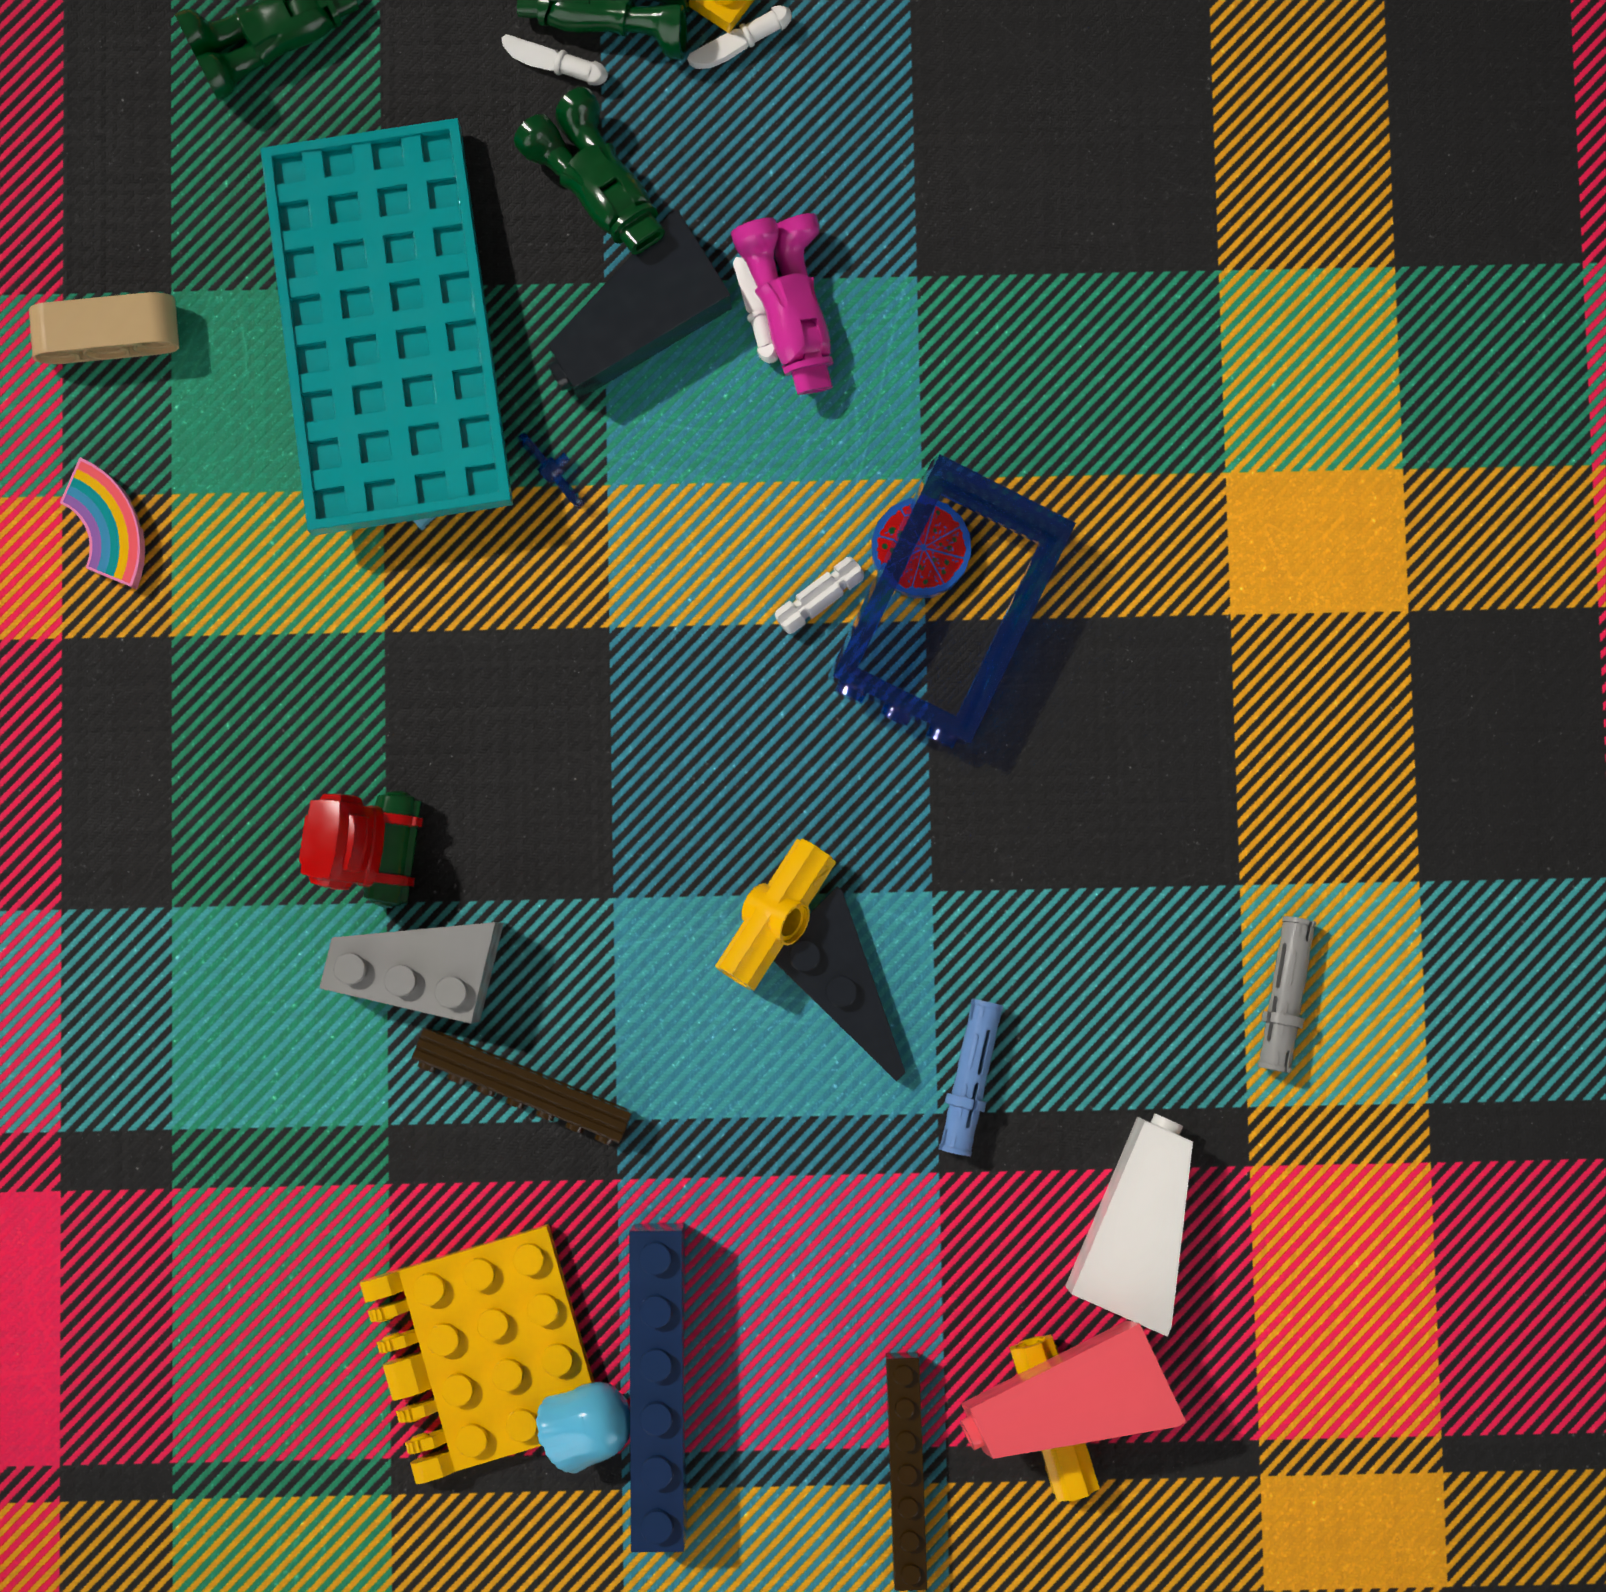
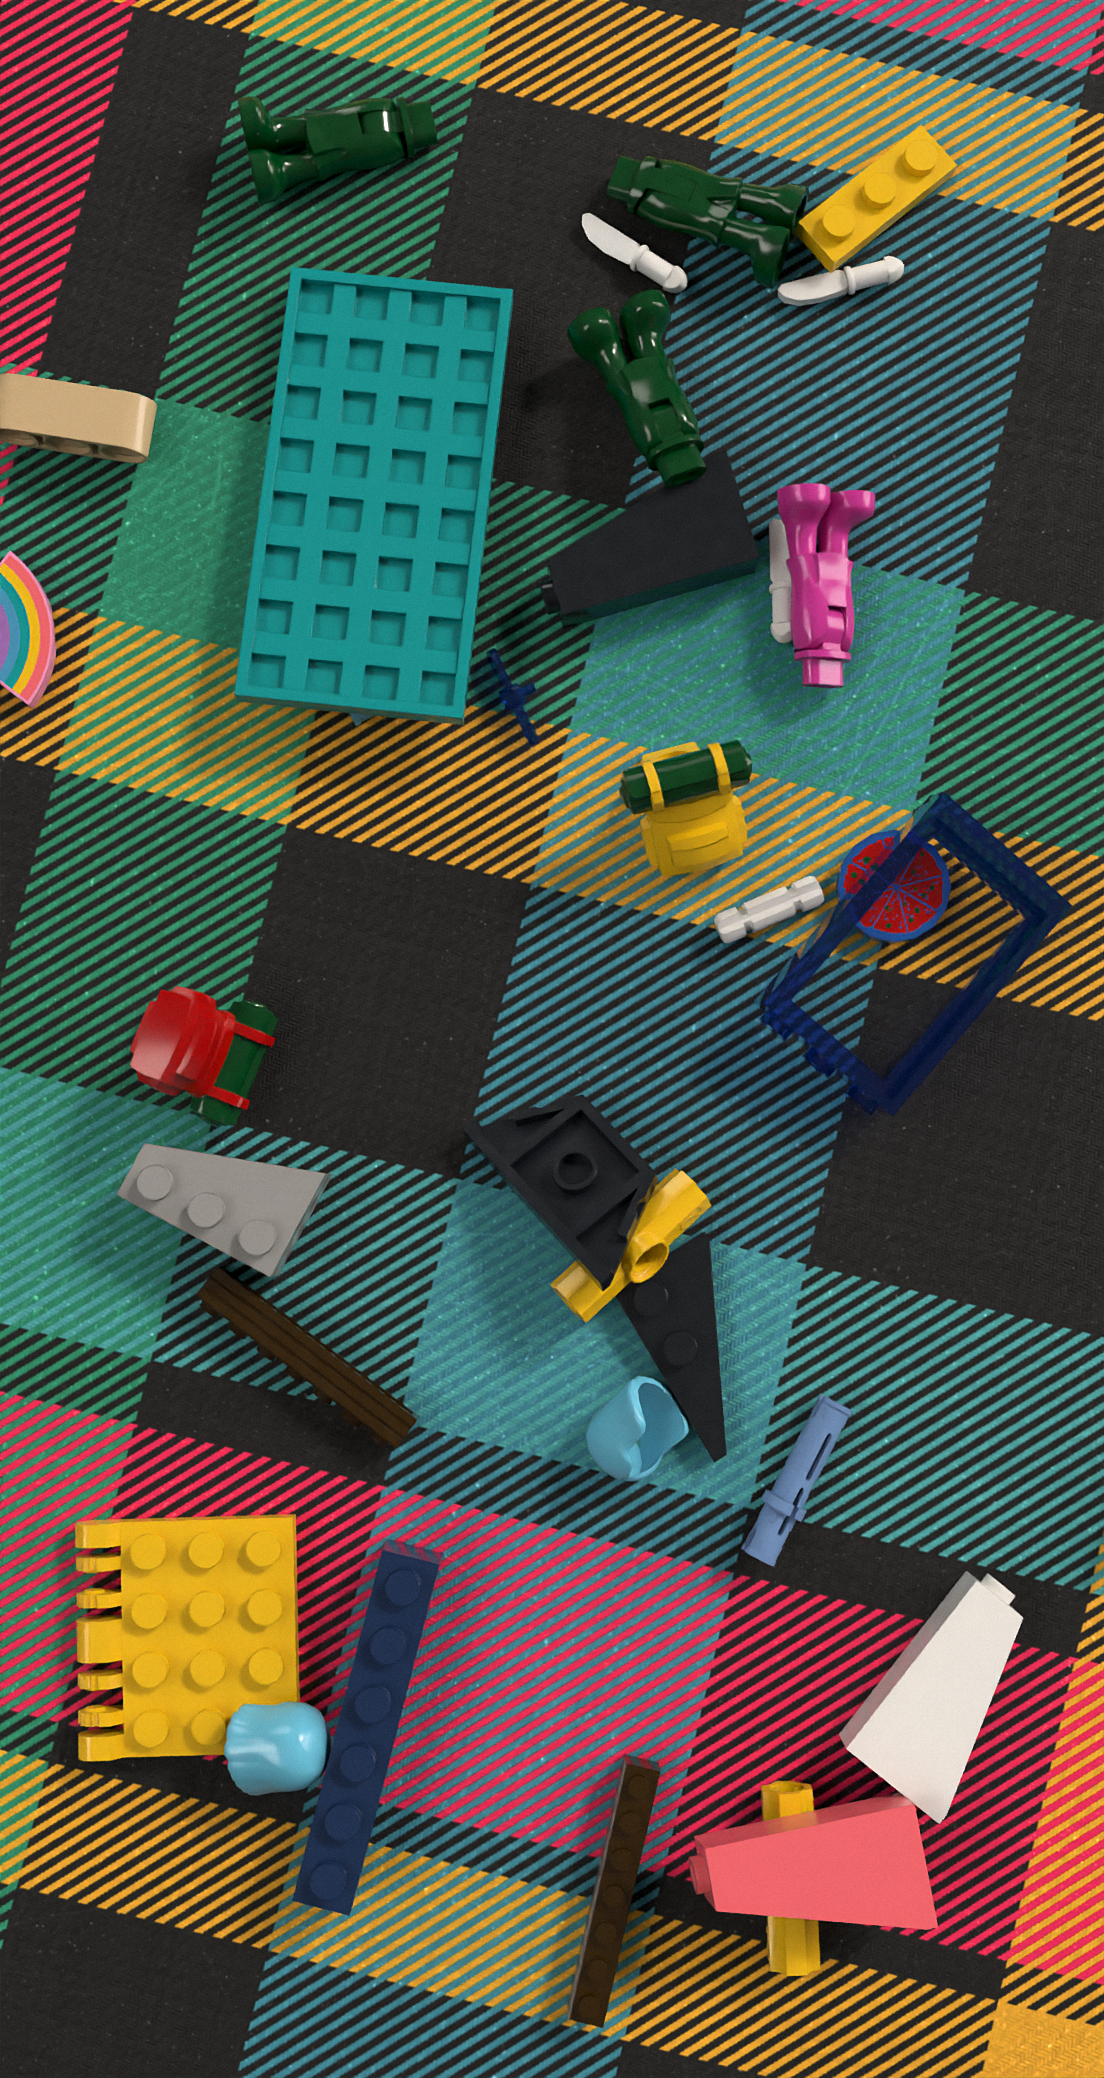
camera: 20 degrees right, 0 degrees up
(709, 869) = (572, 1177): none -> black wing
(726, 523) = (689, 805): none -> yellow piece
(817, 1052) = (636, 1412): none -> medium azure hair

